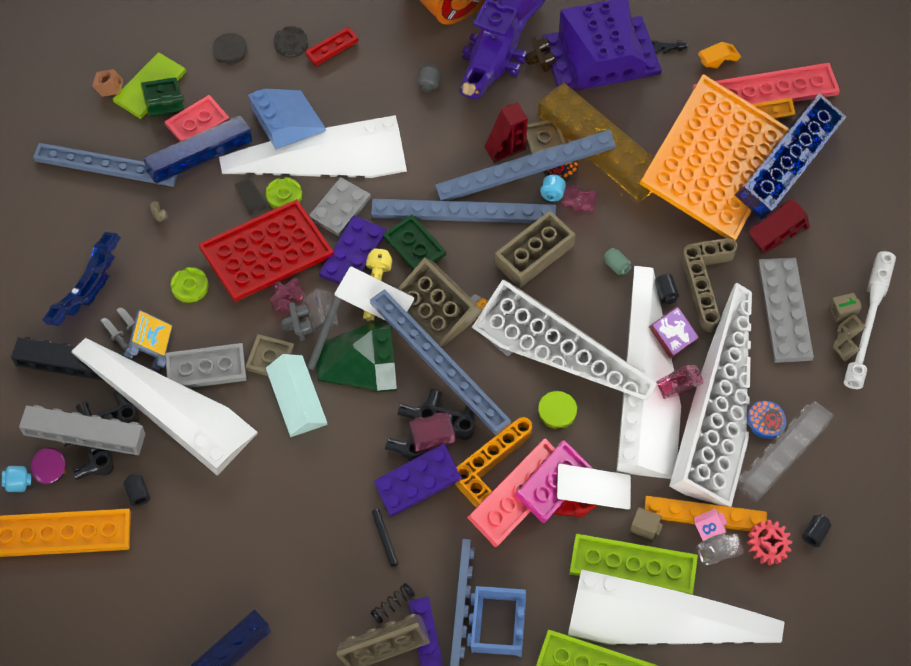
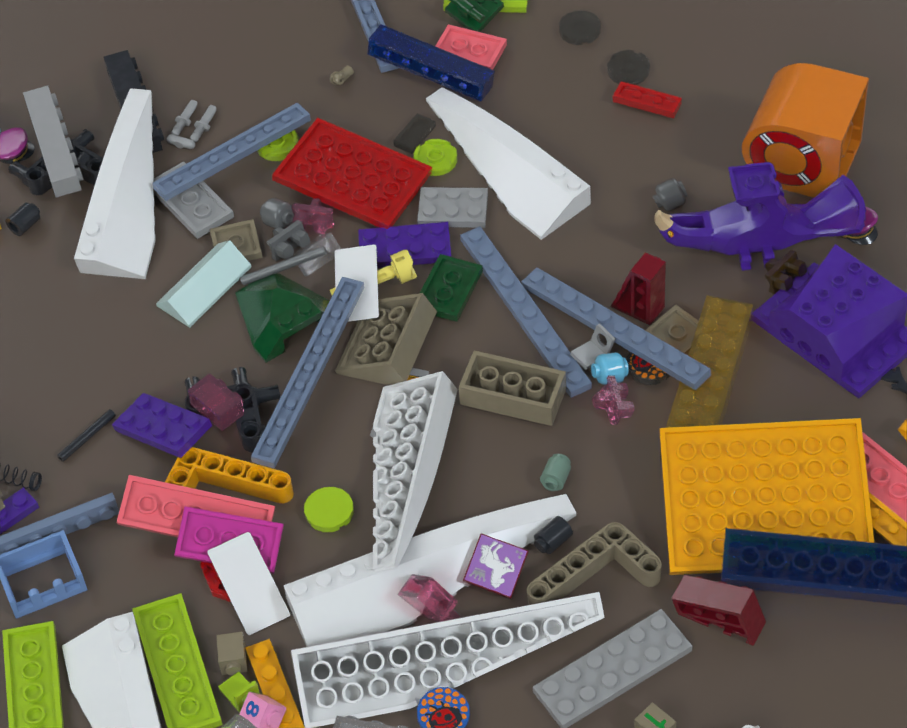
camera: 65 degrees right, 10 degrees down
(90, 282) = (212, 72): clear blue piece -> none
(151, 337) = (189, 138): flag -> none
(185, 316) = (231, 151): none -> sand blue plate
(268, 315) = (276, 213): none -> dark grey head
(285, 116) = (520, 102): medium blue slope -> none
(530, 189) = (587, 353): none -> light grey bracket
(679, 533) = (237, 688): none -> lime bracket

